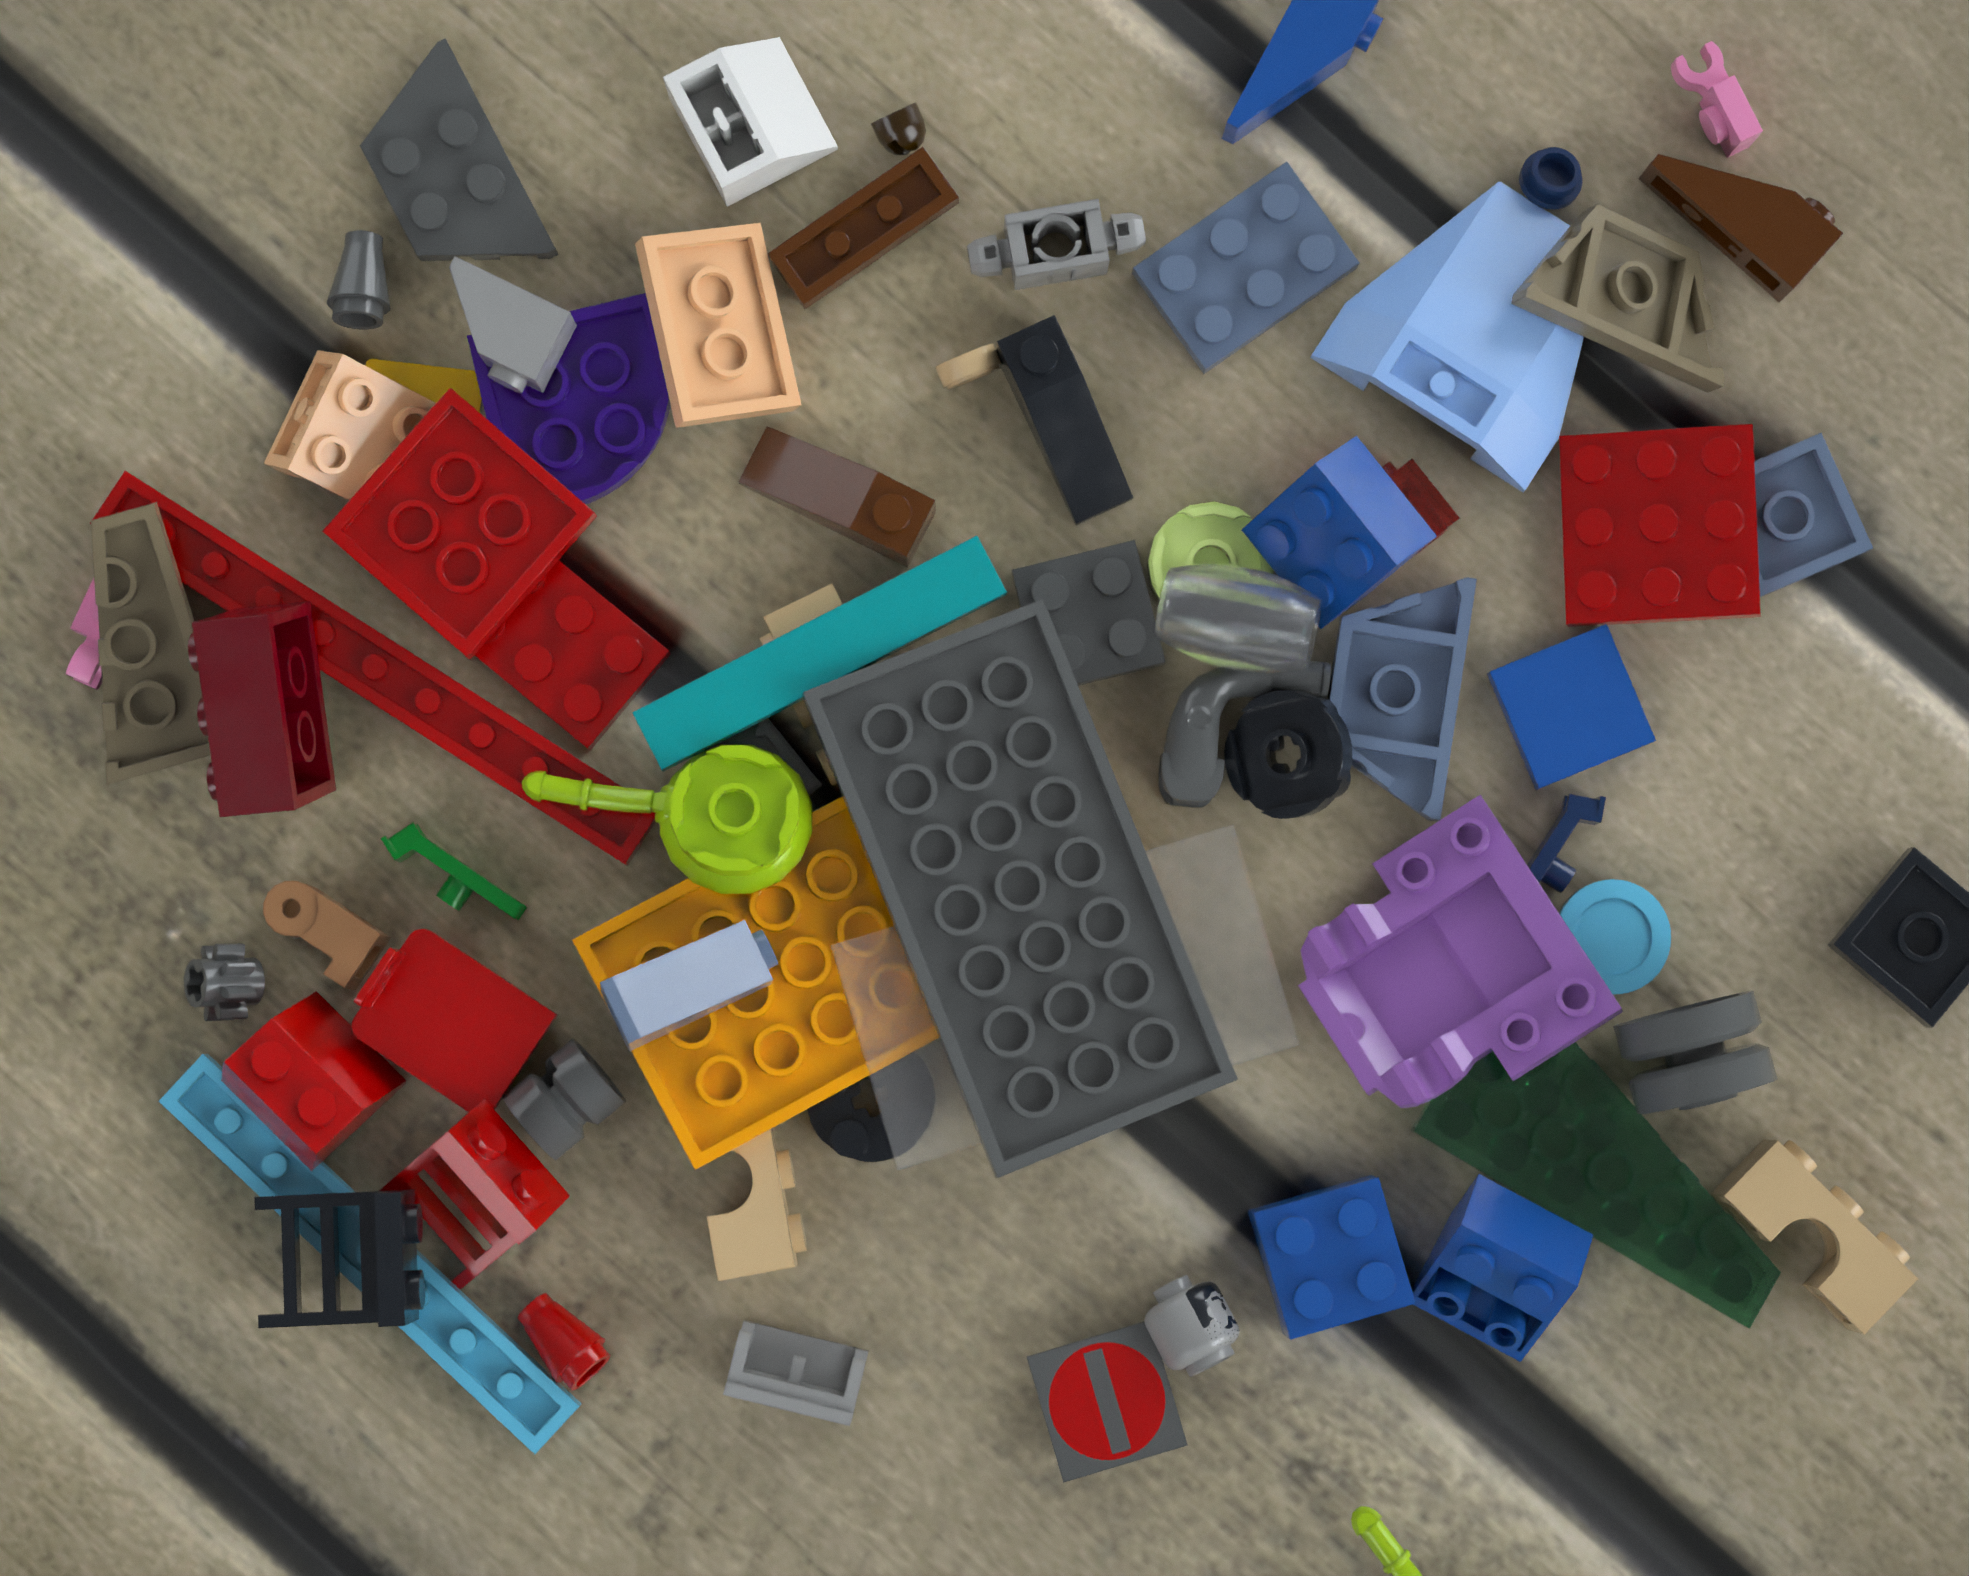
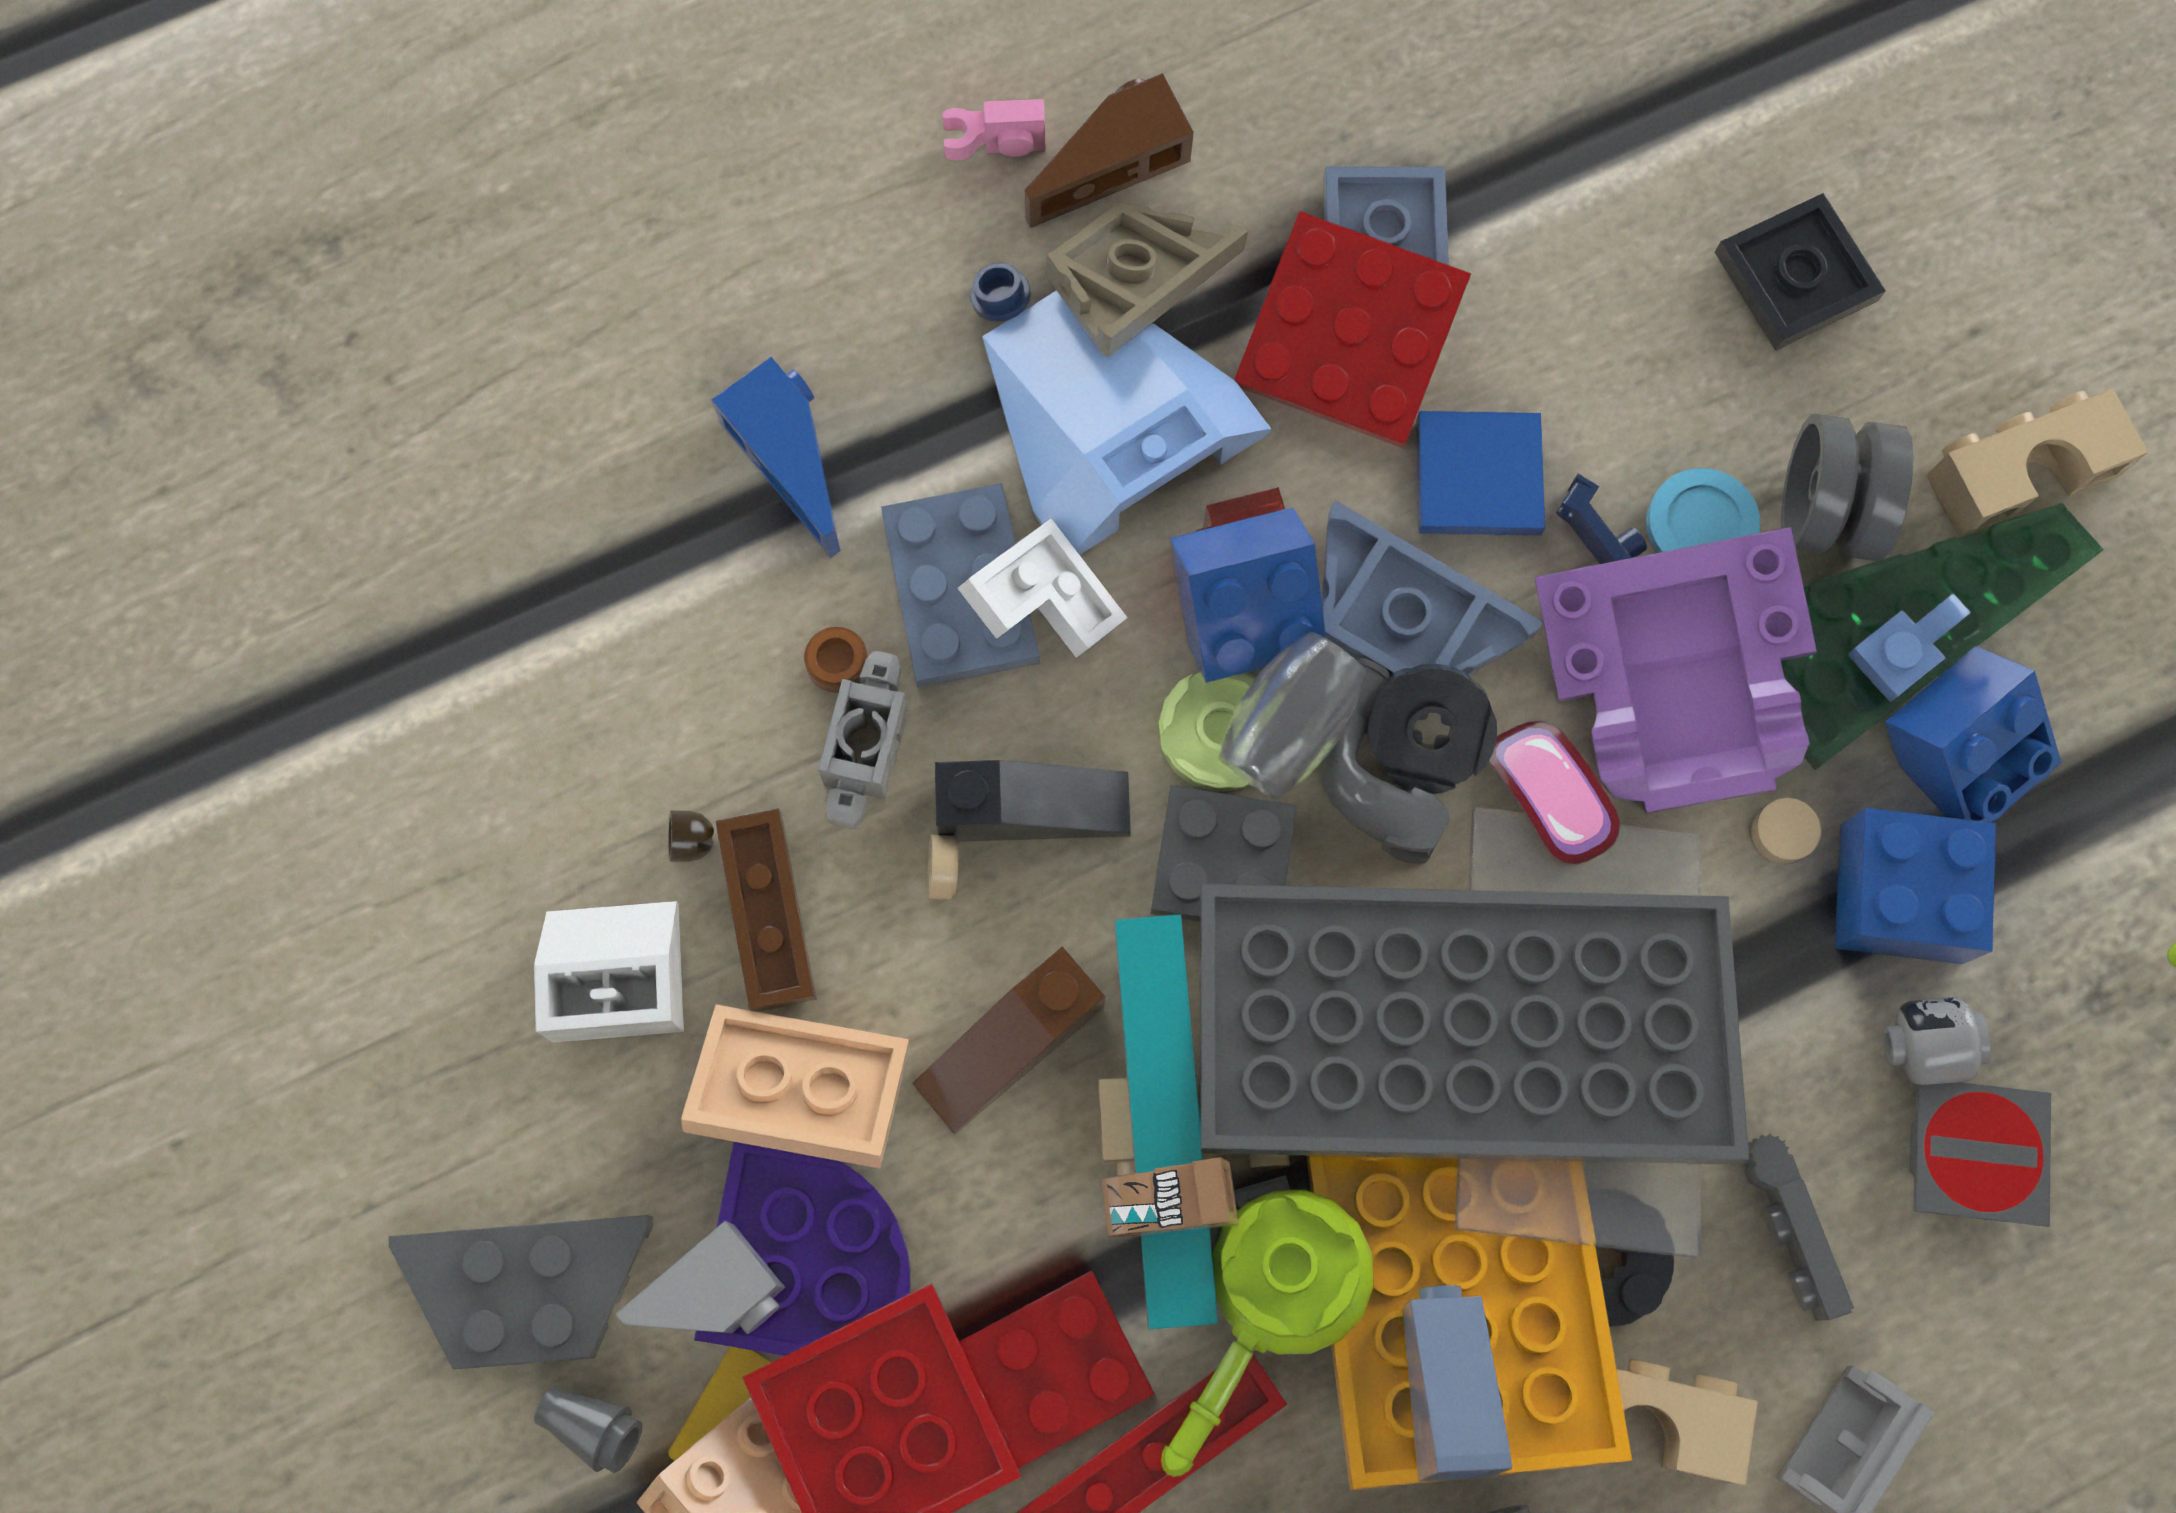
camera: 65 degrees left, 10 degrees down
(746, 683) = (1170, 1199): none -> medium nougat leg
(969, 1254) = (1794, 1222): none -> dark grey hinge
(1124, 185) = (835, 656): none -> dark orange tile
(1281, 341) = (1044, 575): none -> white plate
(1282, 893) = (1556, 791): none -> sticker
(1338, 1123) = (1786, 831): none -> tan tile
(1555, 1165) = (1904, 650): none -> medium blue plate

